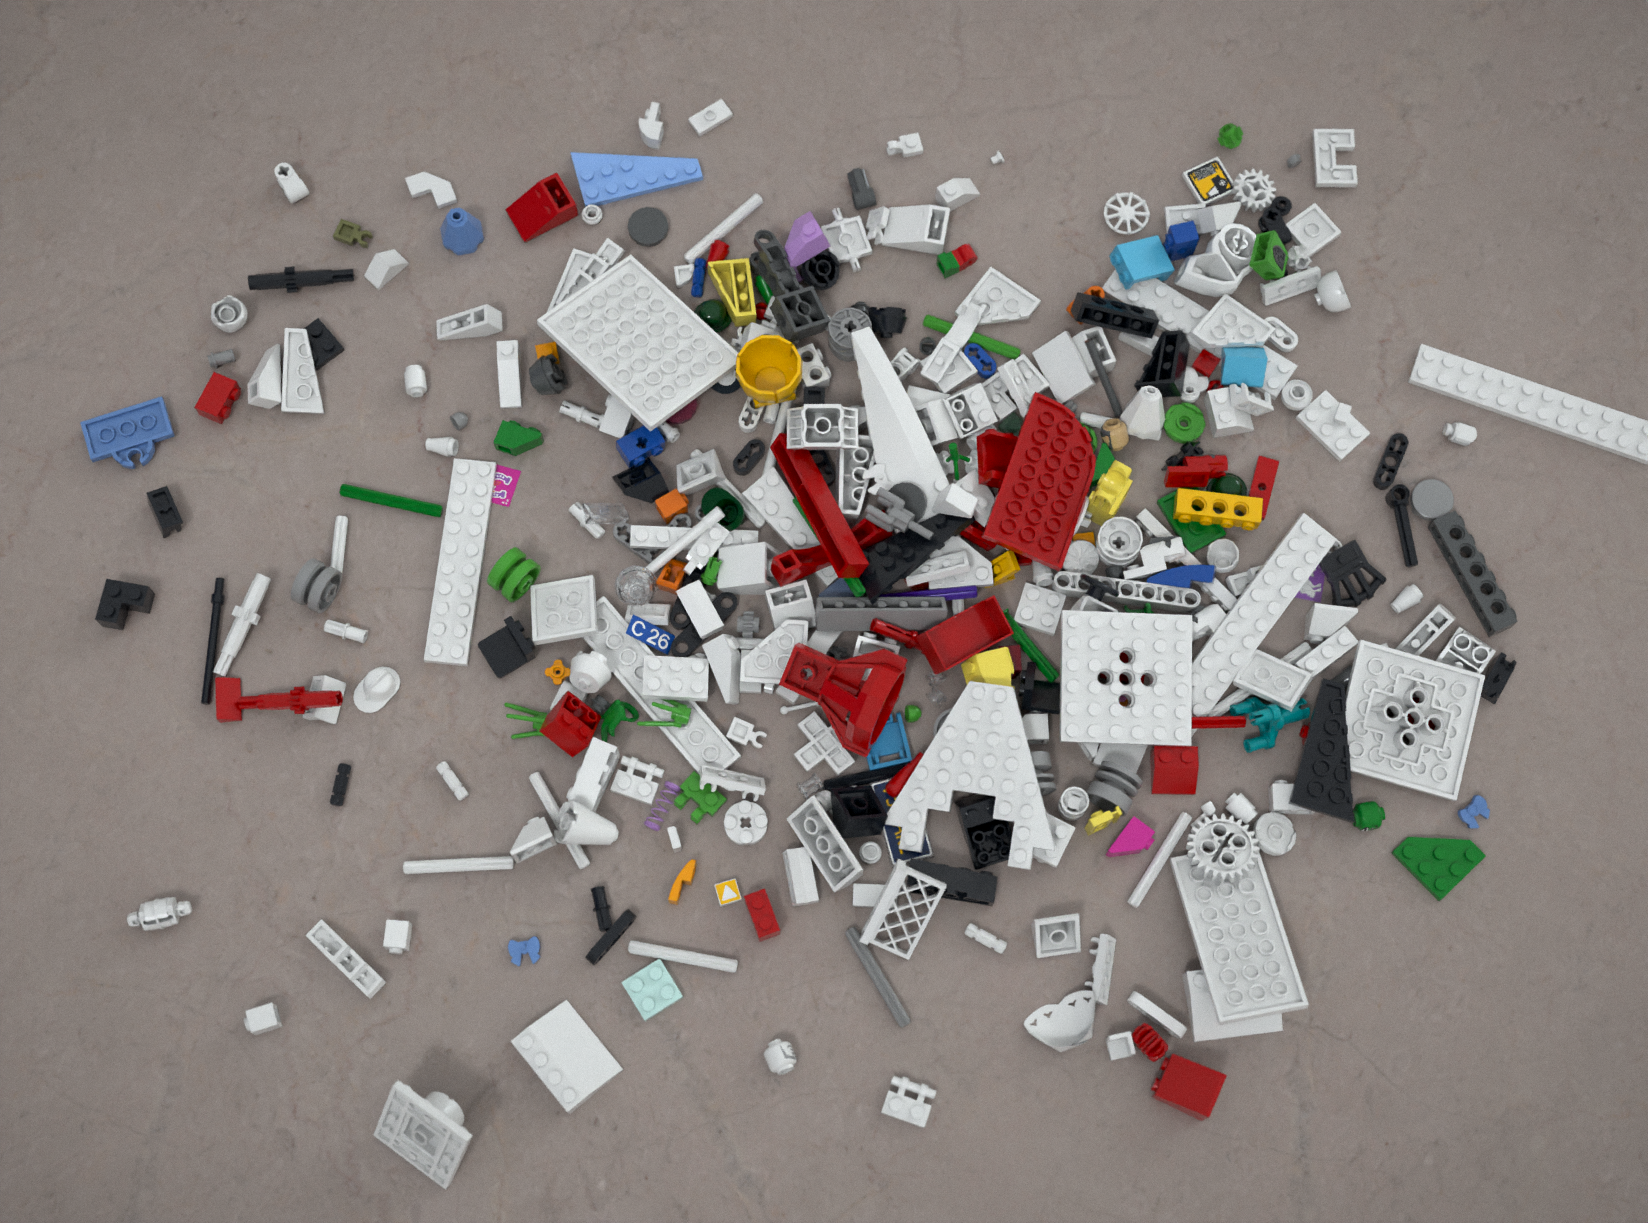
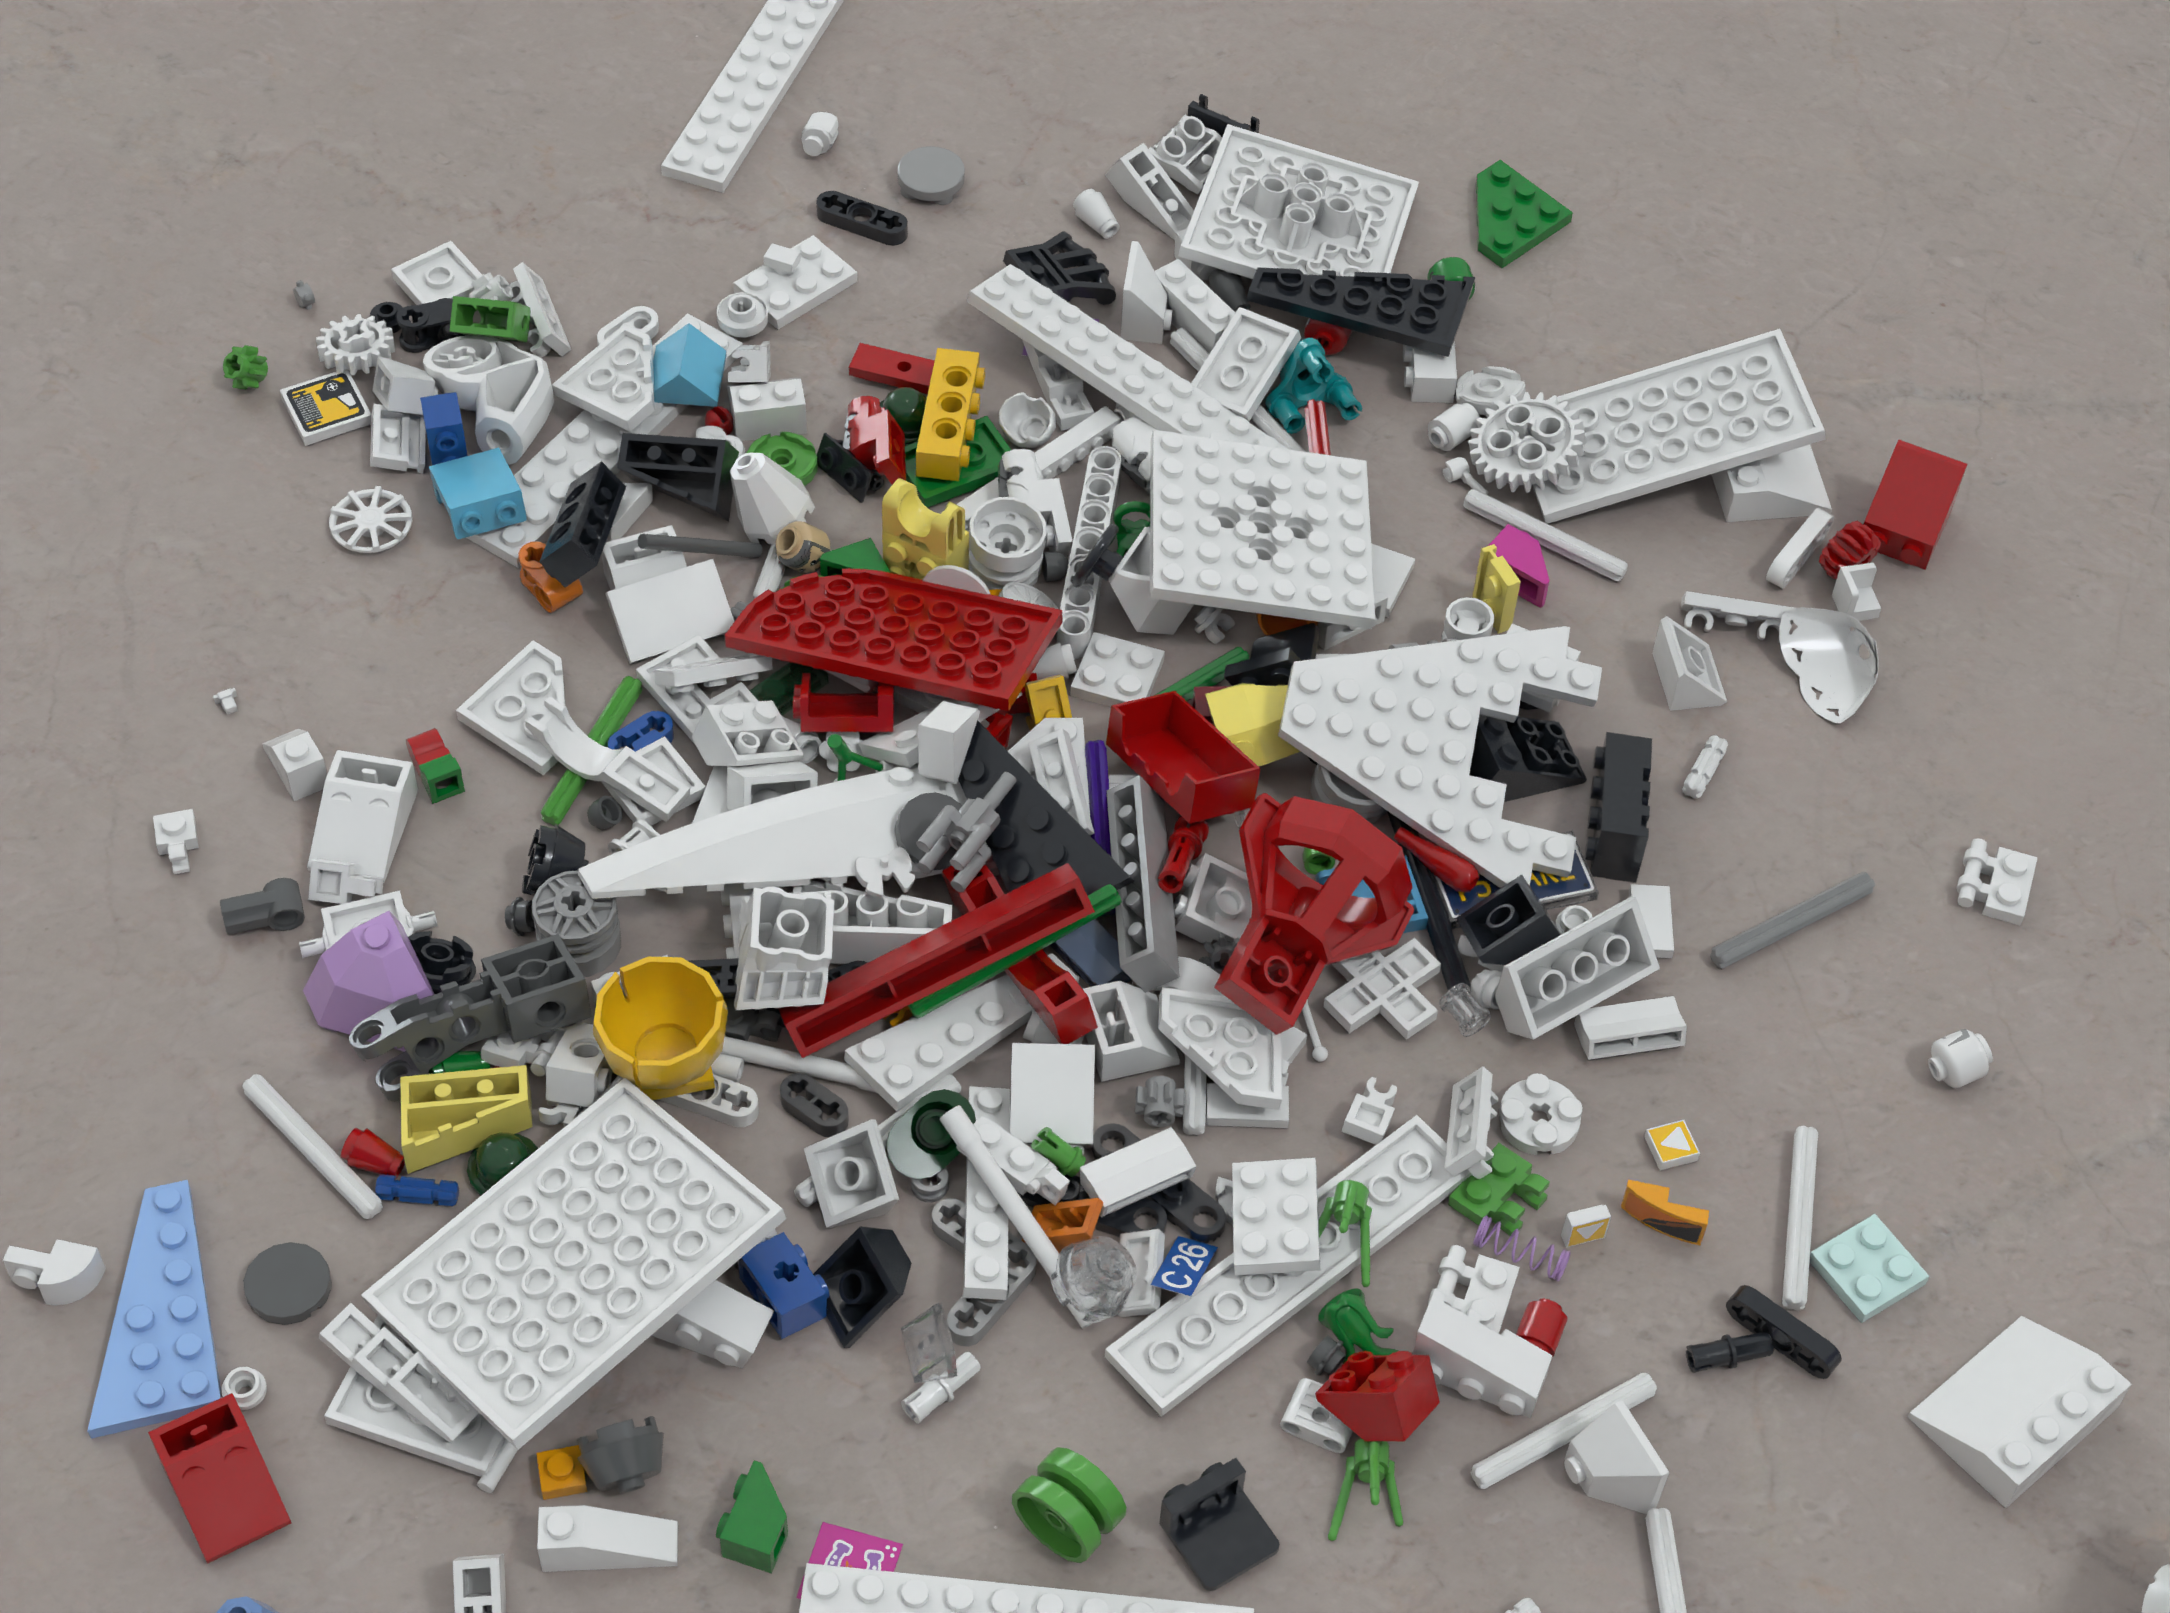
camera: 90 degrees left, 20 degrees down
(531, 946) = (1818, 1479): medium blue piece -> none
(557, 678) = (1263, 1448): light orange plate -> none
(563, 610) = (1142, 1412): white plate -> none
(581, 414) = (705, 1402): white pin -> none
(583, 826) = (1584, 1373): white cone -> none
(589, 672) = (1272, 1362): white cone -> none
(613, 810) = (1543, 1324): none -> red brick
(671, 505) = (917, 1230): orange brick -> none
(683, 274) = (405, 1220): white tile -> none
(710, 117) = (50, 1169): white plate -> none
(725, 663) = (1237, 1136): white slope -> none
(762, 915) = (1712, 1083): red brick -> none
(884, 904) = (1673, 871): white fence -> none
(1114, 787) = (1434, 569): light grey wheel -> none
(1174, 770) = (1398, 505): red slope -> none
(1184, 576) = (1066, 459): blue slope -> none
(1206, 363) = (674, 423): red plate -> none
(1324, 147) = (279, 251): white plate -> none
(1332, 293) = (562, 253): white cylinder -> none
(1403, 522) = (930, 209): black axle -> none
(1470, 584) = (1055, 137): dark grey brick -> none
(1477, 806) = (1430, 167): medium blue piece -> none

